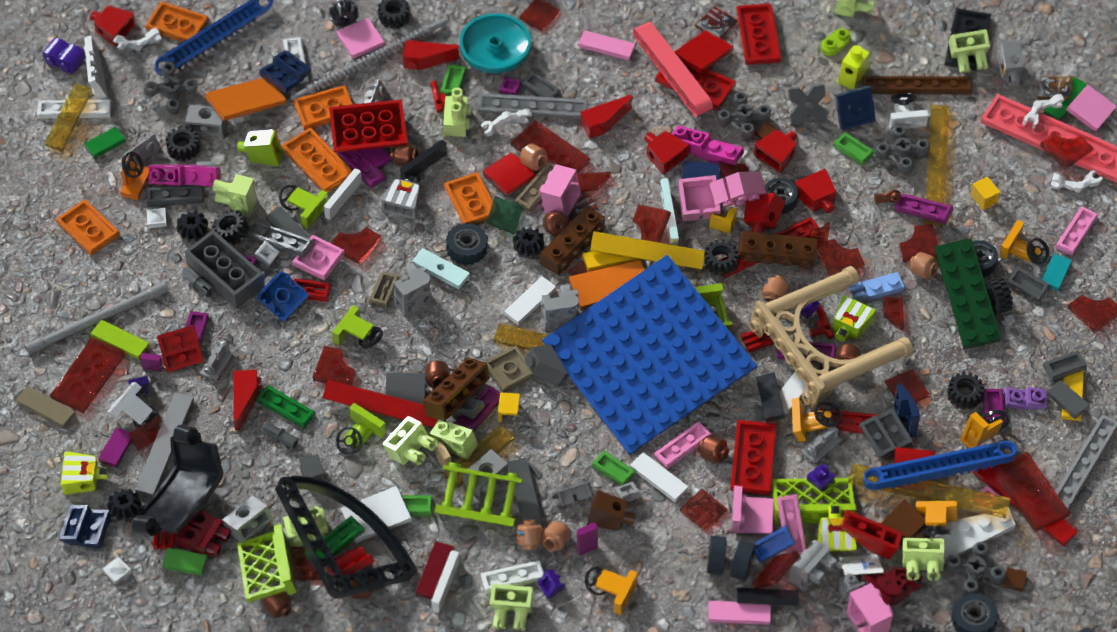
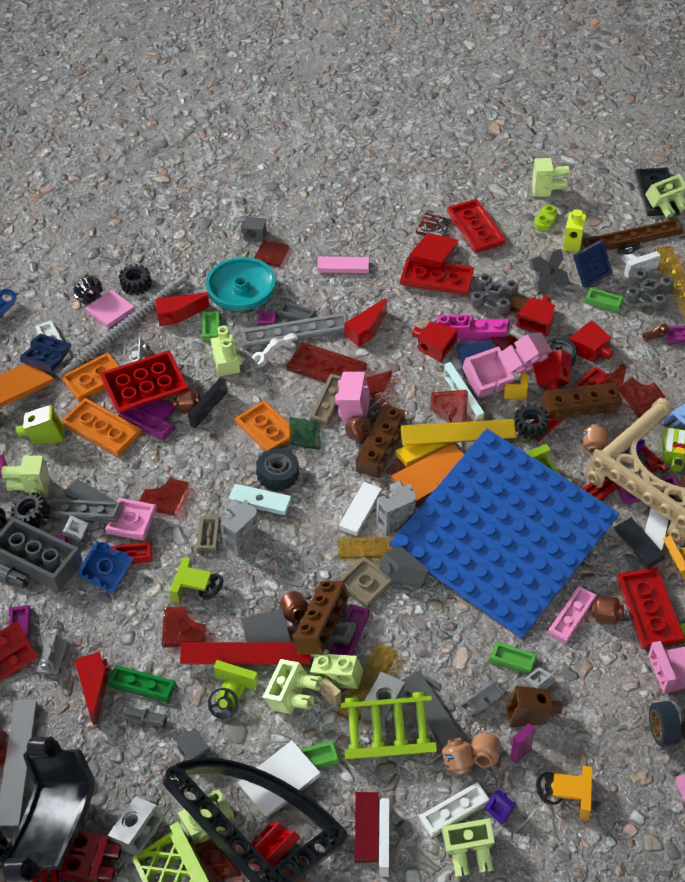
camera: 15 degrees left, 5 degrees down
(311, 204) = (108, 468): lime piece -> none
(341, 536) = (249, 817): green tile -> none
(342, 194) = (136, 452): white tile -> none
(402, 197) = (198, 441): light grey torso -> none
(439, 99) = (204, 345): red hose -> none
(508, 174) = (295, 394): red slope -> none
(508, 405) = (380, 619): yellow panel -> none
(528, 242) = (338, 452): black gear -> none
(533, 157) = (315, 373): nougat head -> none
(659, 477) = (563, 654): white tile -> none
(672, 69) = (415, 268): coral beam -> none
(703, 510) = (623, 677): clear red piece -> none

